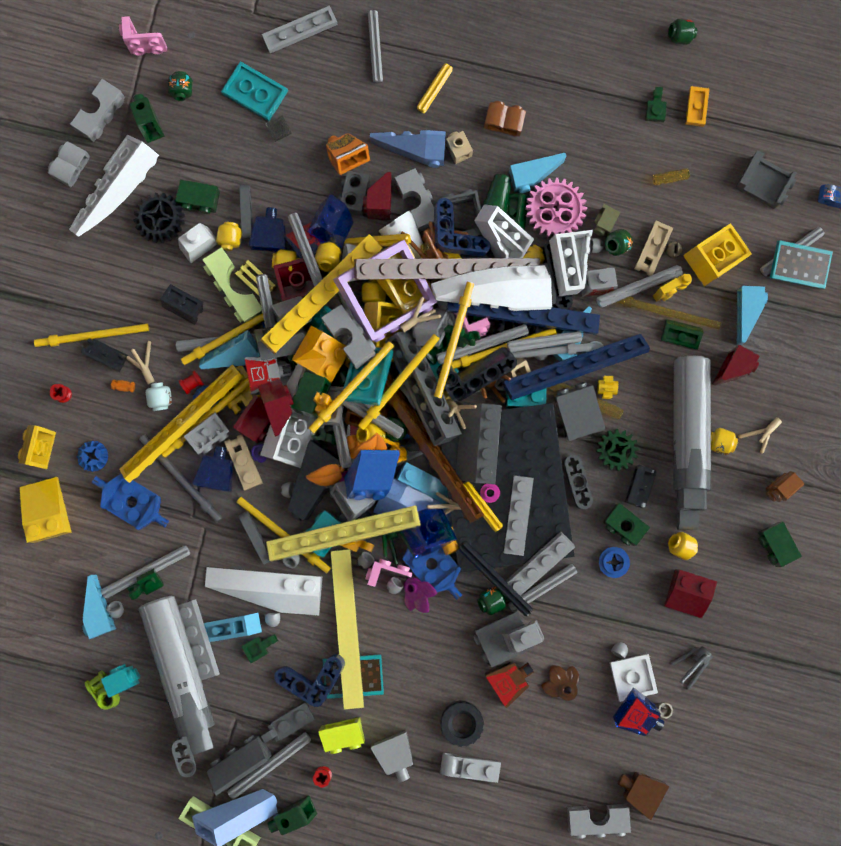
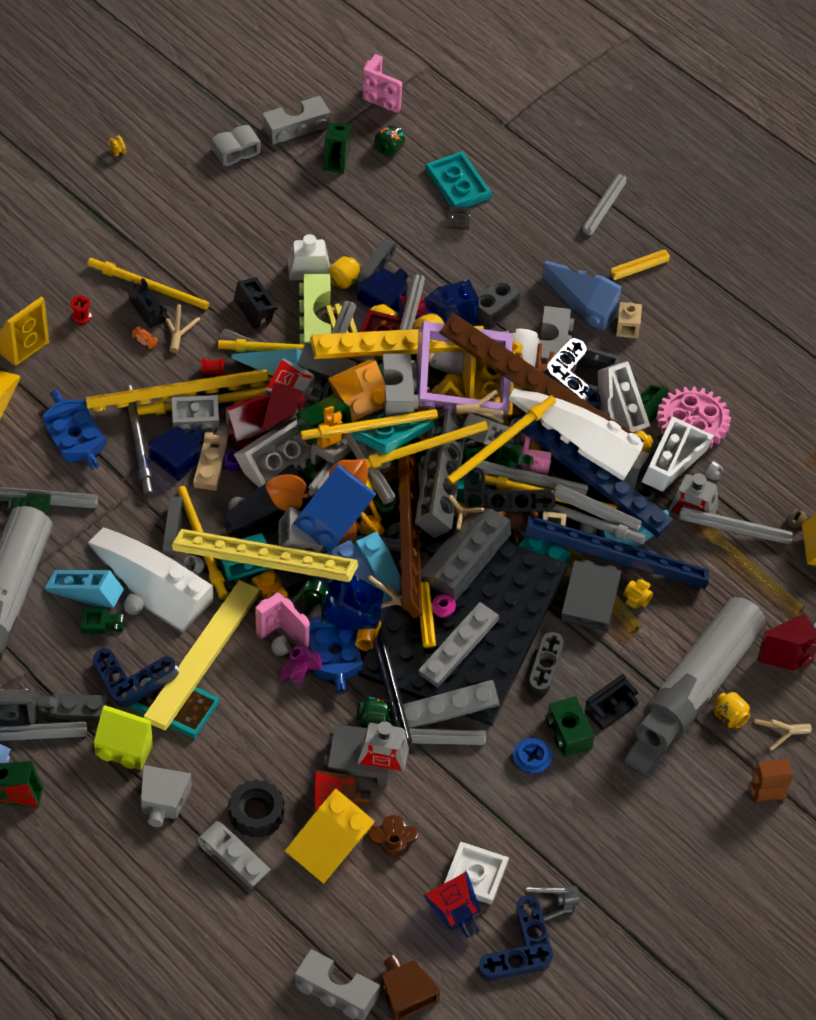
camera: 30 degrees right, 30 degrees down
(100, 453) = (64, 384): blue gear -> none
(121, 177) = (276, 178): white wedge -> none
(145, 213) = (287, 219): black gear -> none
(158, 396) = (172, 361): light aqua head -> none
(197, 196) = (338, 228): dark green brick -> none
(198, 639) = (44, 581): light grey plate -> none
(299, 29) = (539, 155): light grey plate -> none
(319, 781) = (69, 769): red bush -> none
(347, 153) = (509, 264): orange torso -> none
(378, 199) = (517, 310): dark red slope -> none
(498, 192) = (647, 372): dark green plant -> none
(504, 118) = (693, 321): dark orange brick -> none
(528, 718) = (329, 836): none -> yellow slope
(530, 173) = (686, 373): medium azure slope -> none
(605, 220) = (739, 455): olive brick -> none
(614, 442) = (609, 654): dark green gear -> none
(618, 242) = (739, 476): dark green head -> none
(620, 650) = (479, 838): light grey hinge -> none
(654, 247) = (775, 503): tan plate -> none
(666, 706) = (491, 921): dark tan hinge -> none
(667, 291) = (762, 541): yellow plate -> none
(682, 334) = (748, 589): dark green slope -> none
(683, 545) = (619, 778): yellow head -> none
(690, 593) = (597, 827): dark red slope -> none
(701, 708) = (531, 946): none -> dark blue beam
(779, 544) = (729, 835): dark green brick -> none

